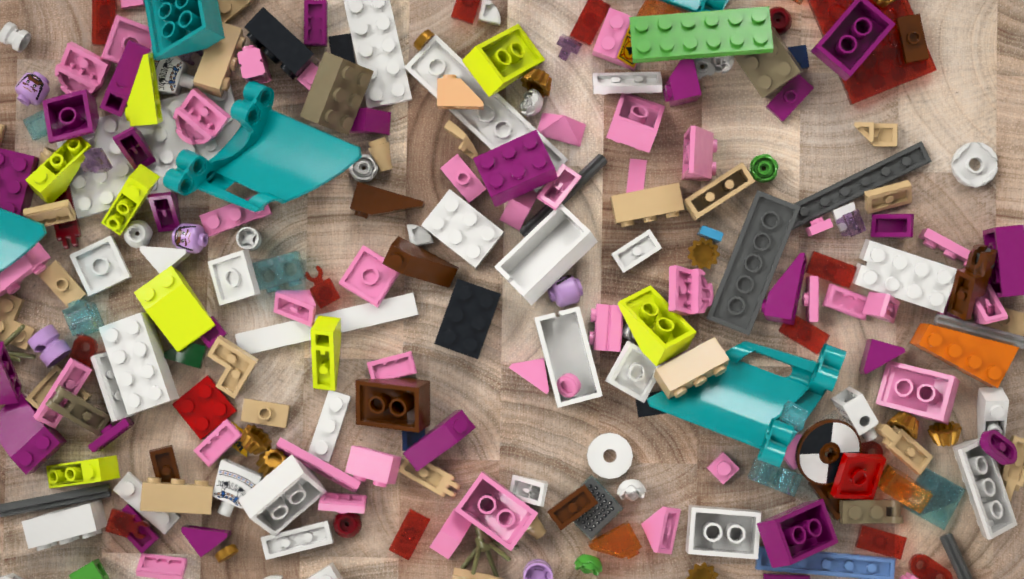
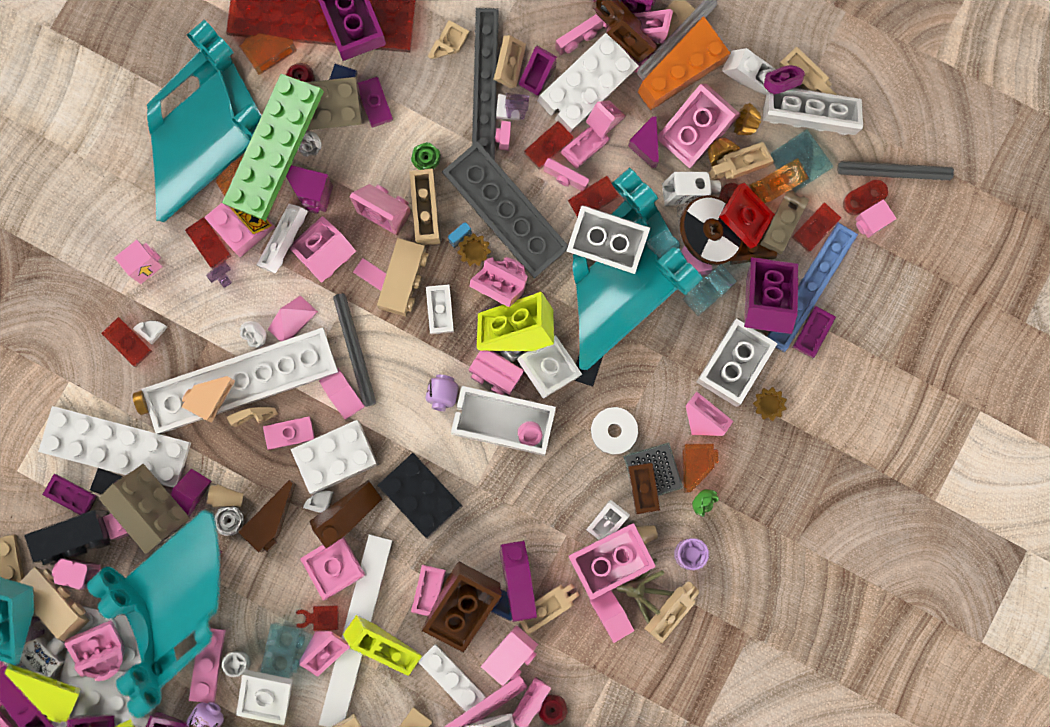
camera: 70 degrees left, 5 degrees down
(409, 534) = (592, 655): clear red plate -> none
(502, 59) = (198, 339): neon yellow slope -> none
(515, 168) = (303, 378): magenta brick -> none
(533, 372) = (501, 460): bright pink slope -> none
(537, 80) = (235, 317): pearl gold piece -> none
(546, 254) = (398, 391): white piece -> none
(557, 190) = (343, 348): bright pink slope -> none
(631, 490) = (656, 426): white plate -> none
(691, 368) = (573, 314): brick -> none
(707, 70) = (309, 159): white plate -> none
(723, 468) = (678, 334): bright pink plate -> none
(772, 366) = (608, 239): none -> white brick
(785, 294) = (550, 197): magenta slope -> none

